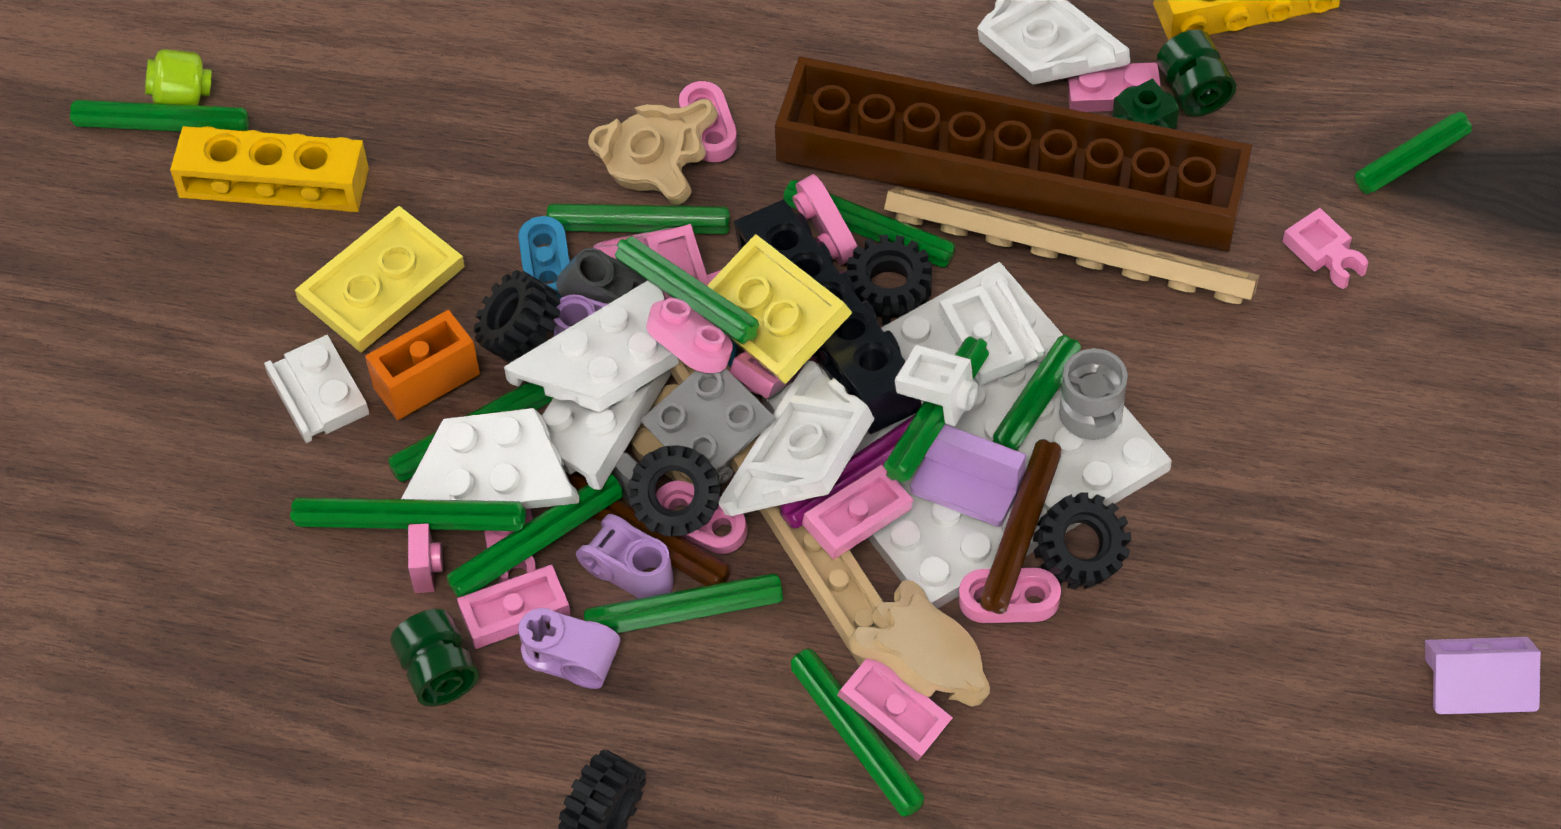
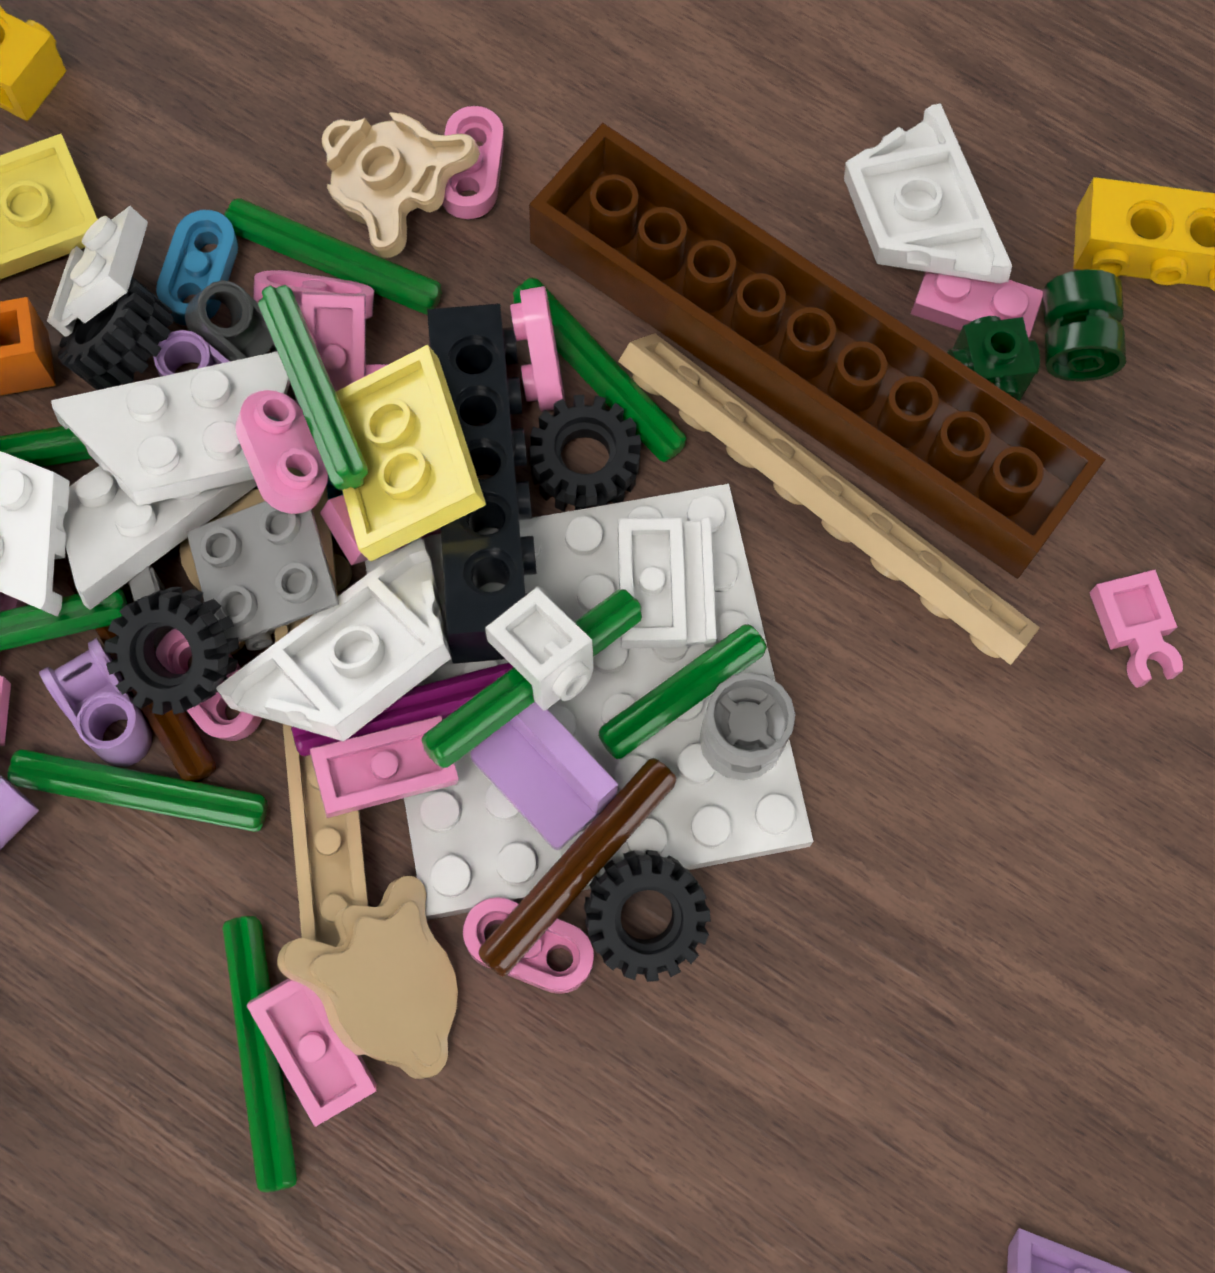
camera: 15 degrees right, 15 degrees up
(483, 280) = (99, 273): none -> white plate

